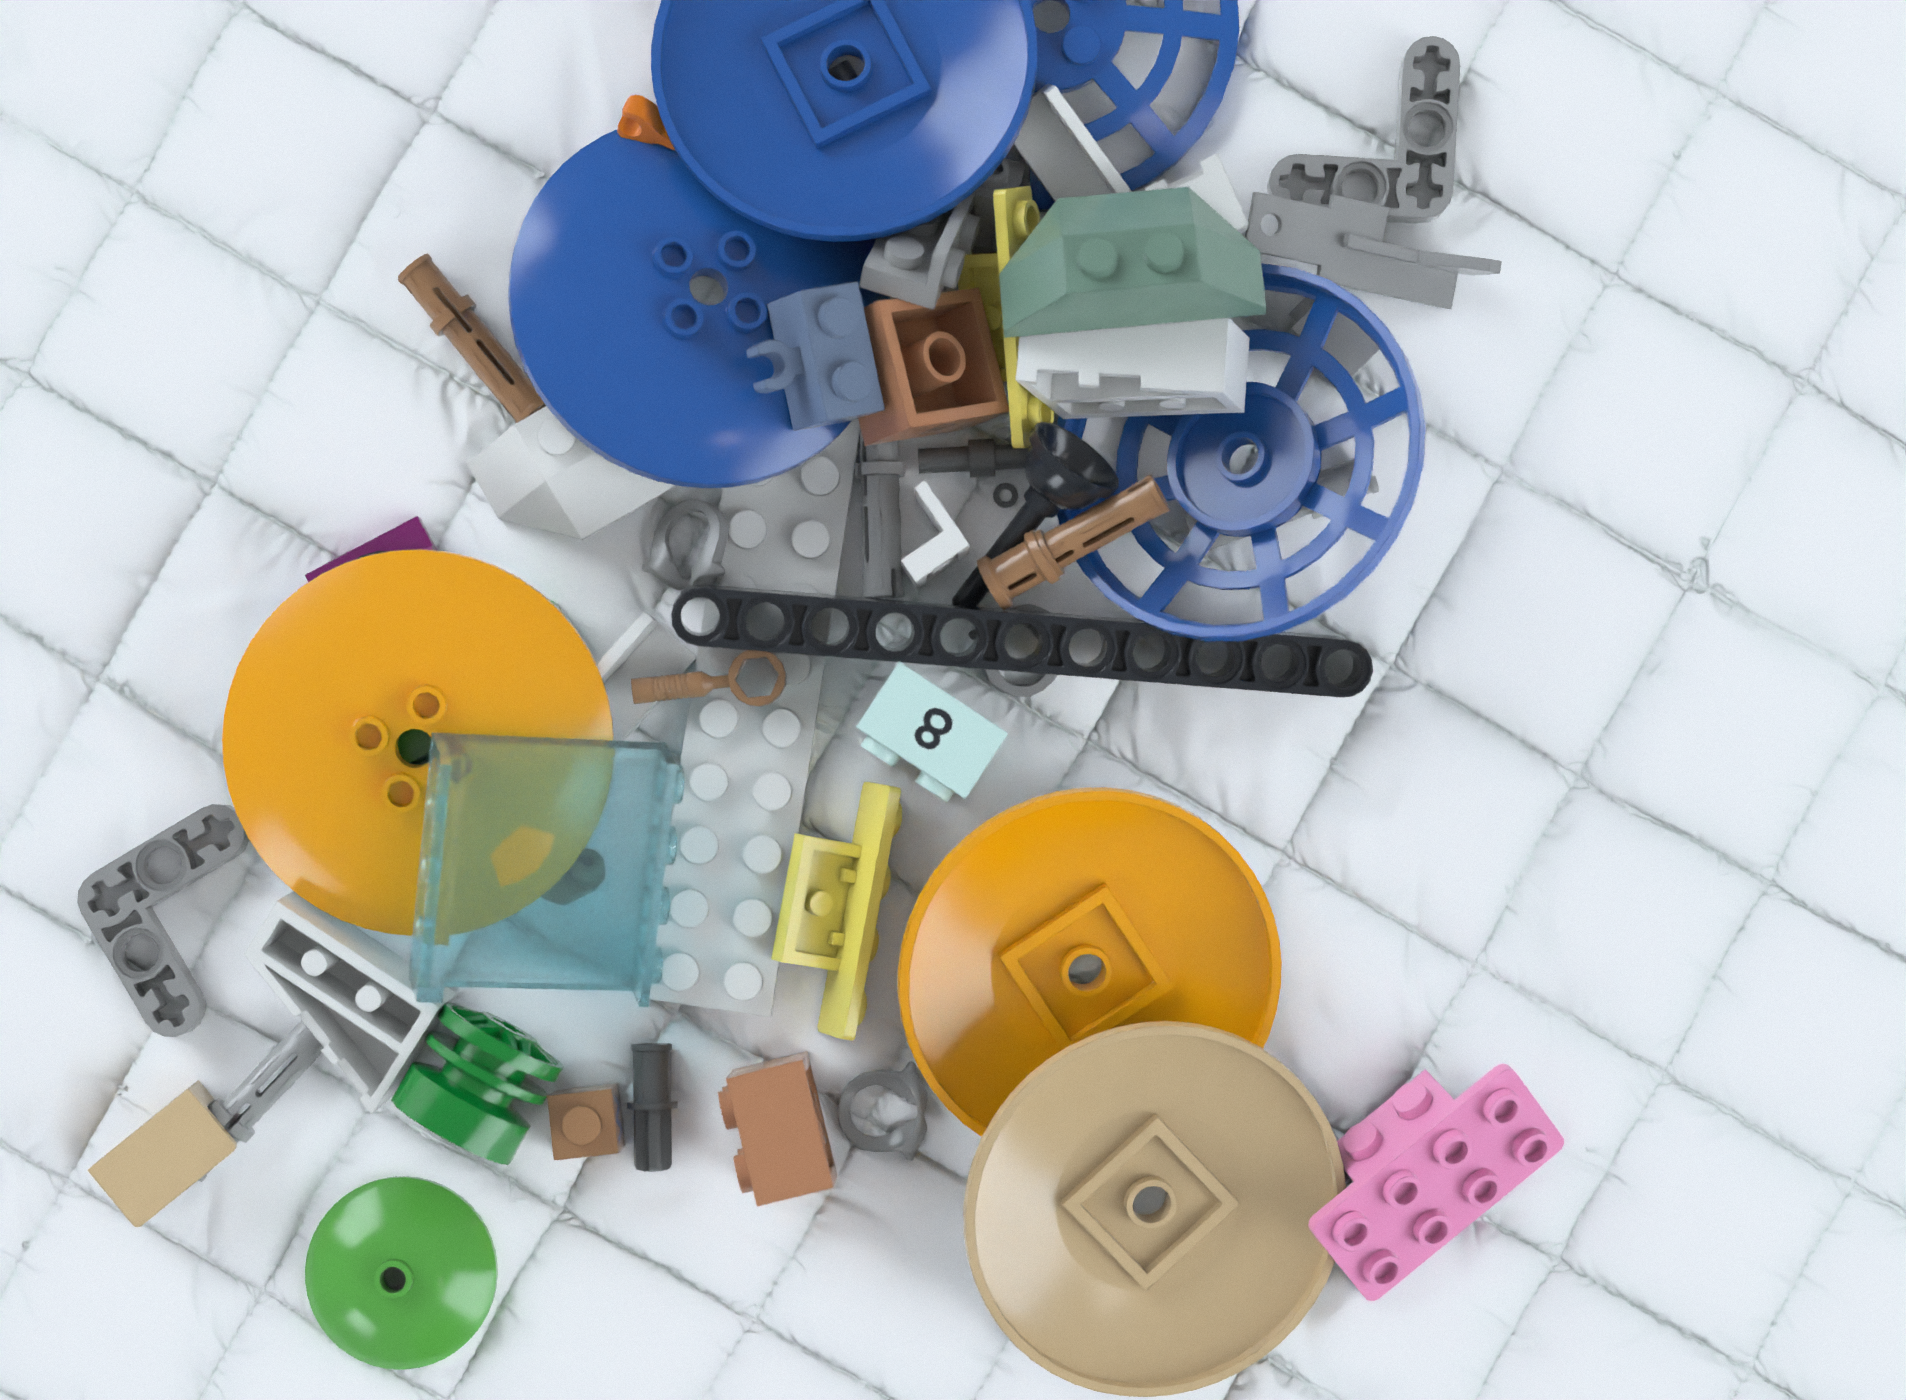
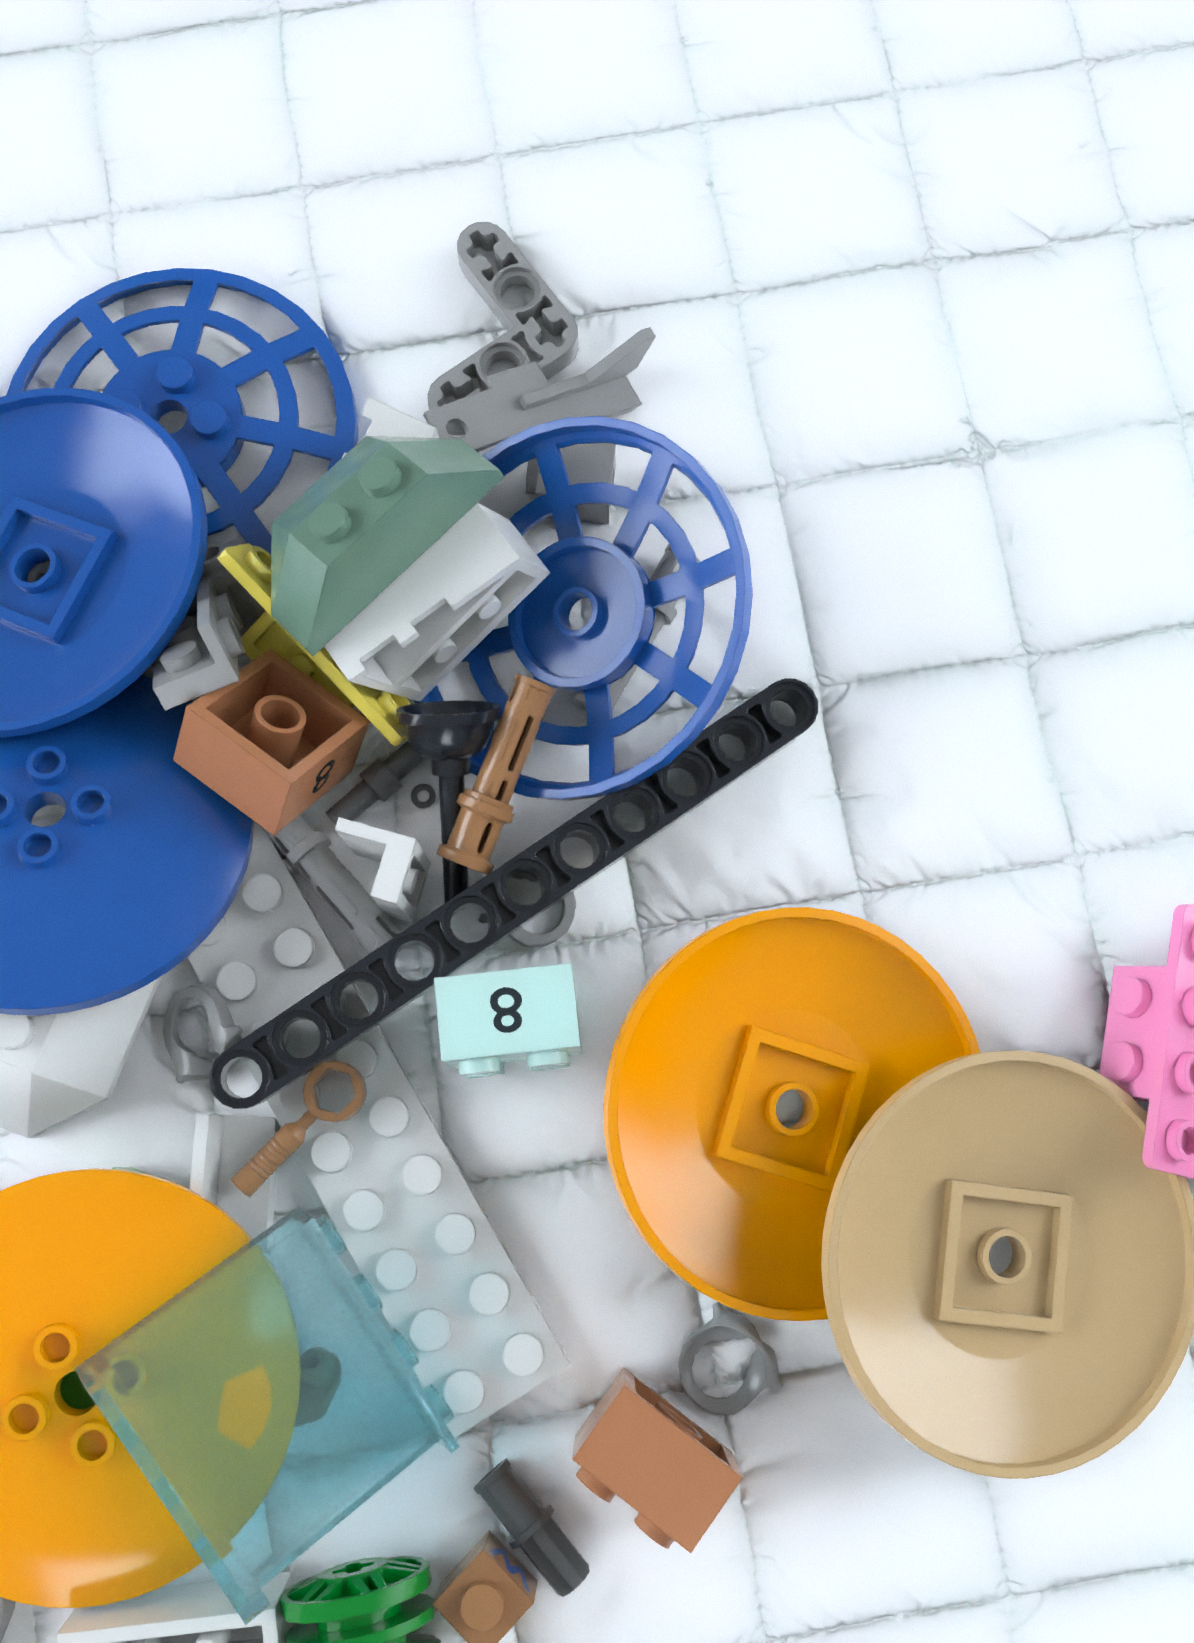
camera: 35 degrees left, 10 degrees down
(821, 356) = (177, 788): sand blue brick -> none
(835, 904) = (548, 1228): light yellow bracket -> none
(1064, 151) = (247, 493): white panel -> none

